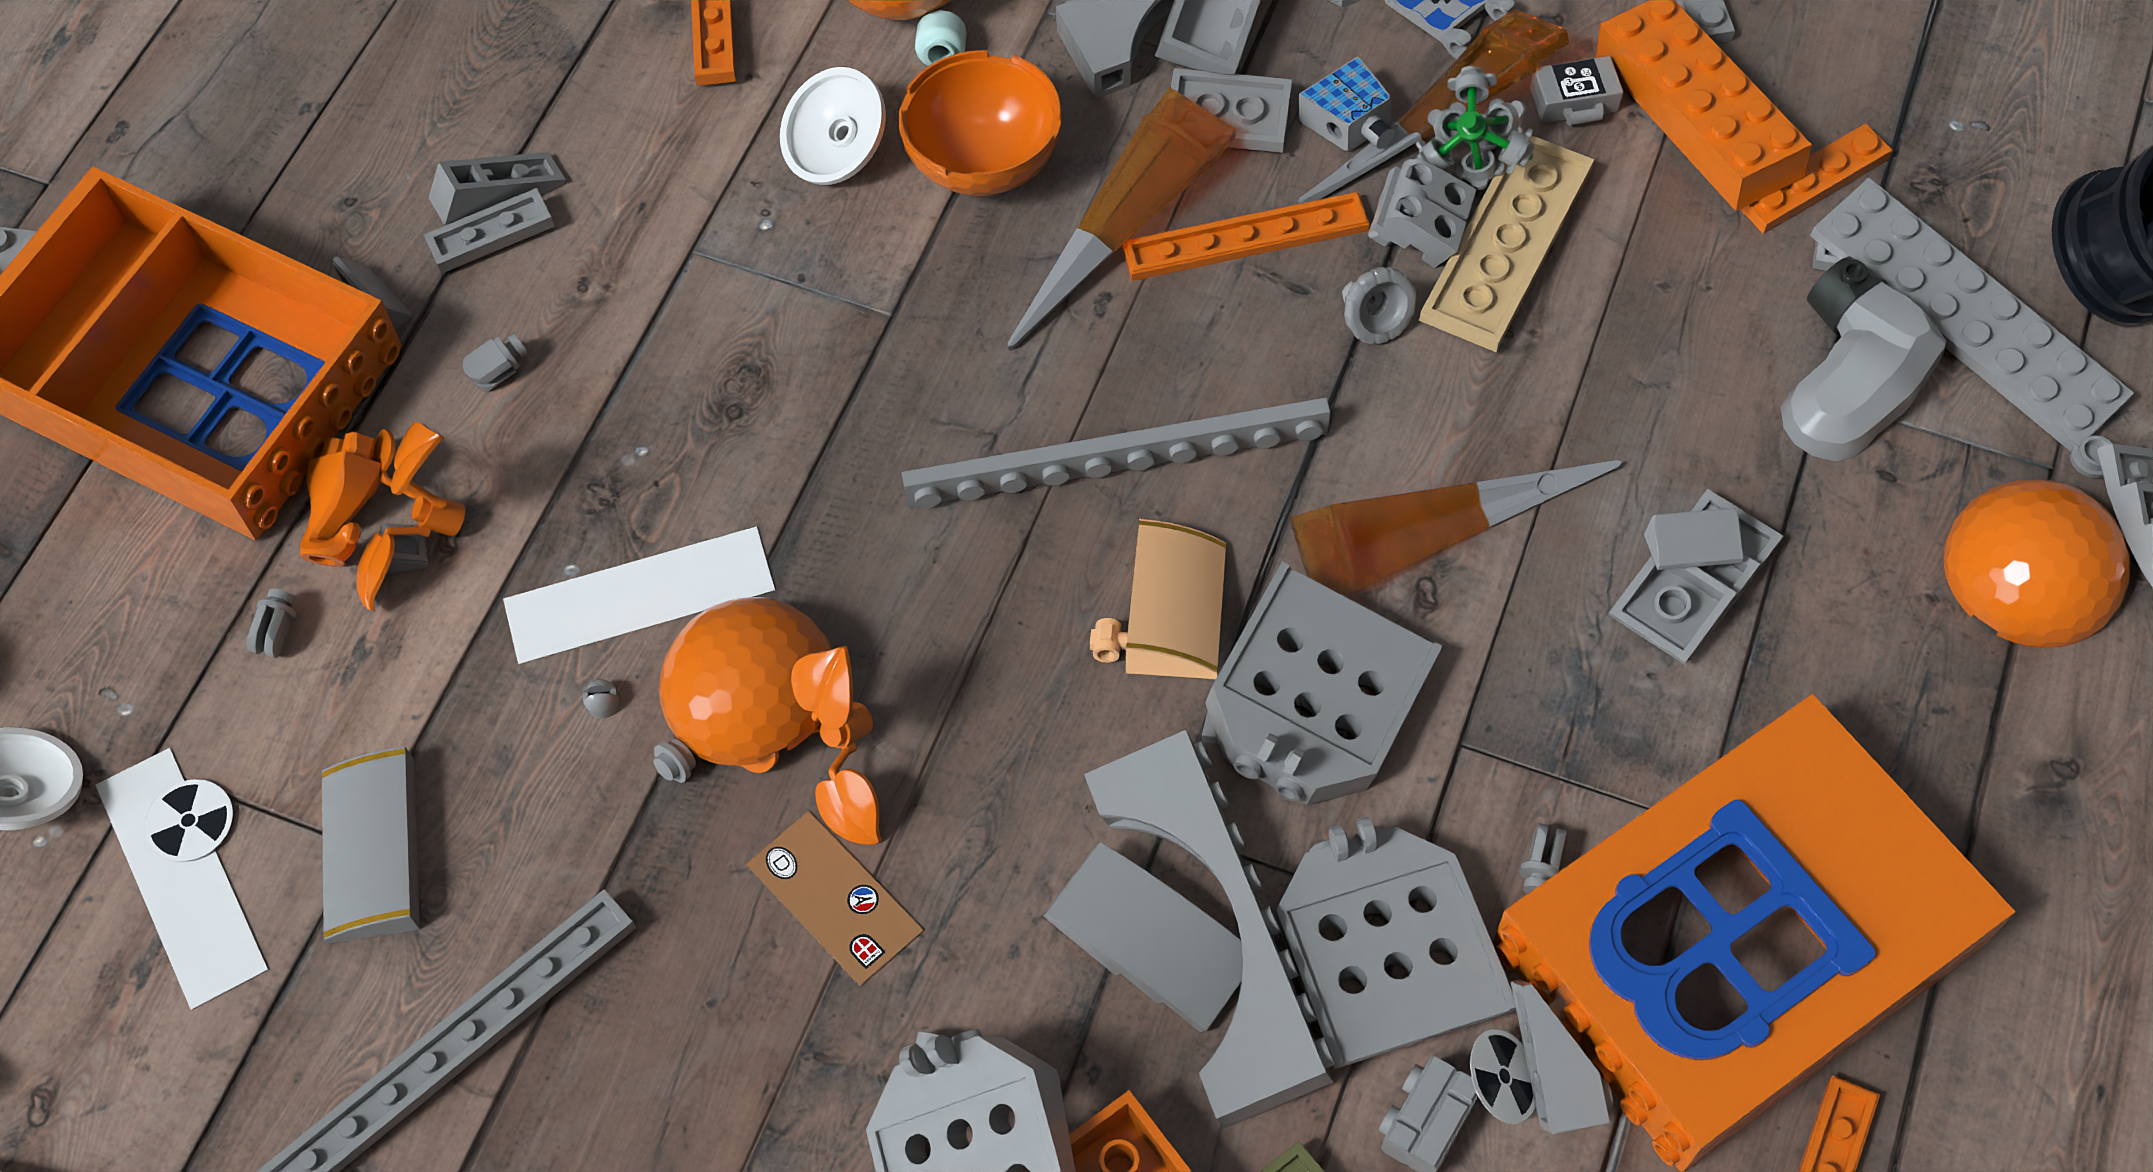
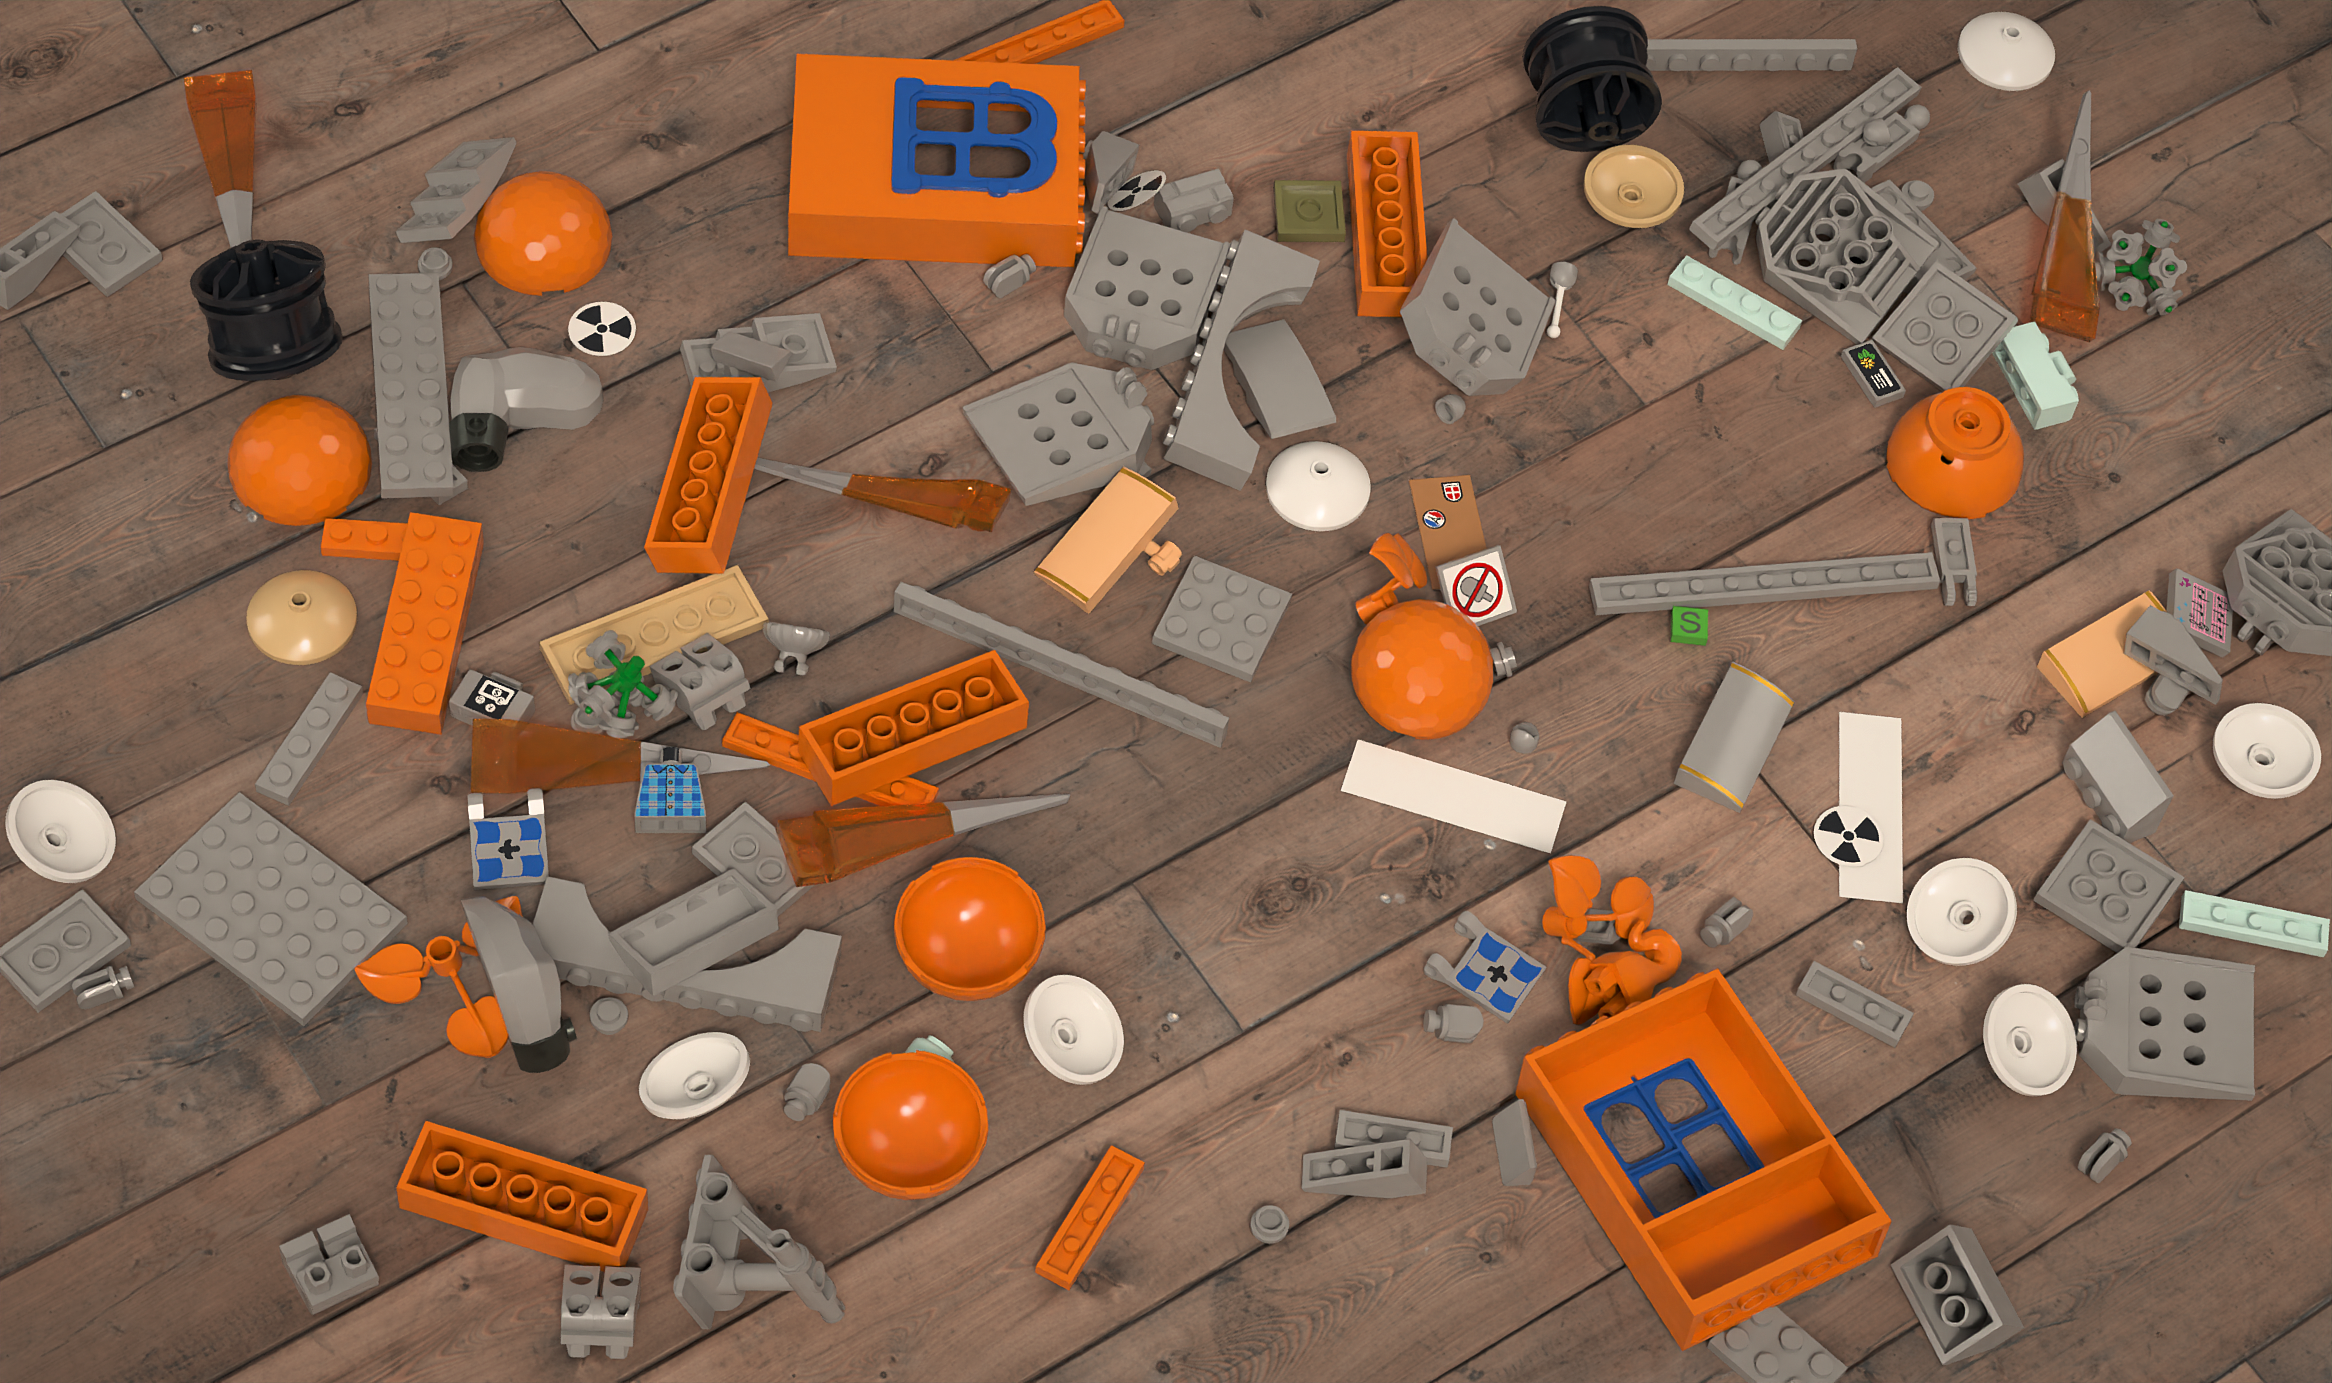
camera: 155 degrees left, 5 degrees down
(95, 626) = (1854, 1004): none -> light grey plate
(491, 952) = (1689, 625): none -> bright green tile
(492, 438) = (1490, 971): none -> light grey flag
(555, 104) = (1269, 1224): none -> light grey plate
(751, 814) = (1478, 585): none -> piece
(1001, 621) = (1222, 618): none -> light grey plate
(1022, 874) = (1313, 498): none -> white dish
(1191, 287) = (913, 727): none -> orange brick
(1609, 397) = (708, 475): none -> orange brick
(1813, 70) = (305, 631): none -> tan dish
(1875, 514) = (601, 328): none -> white sticker
(1979, 182) = (299, 460): none -> orange piece

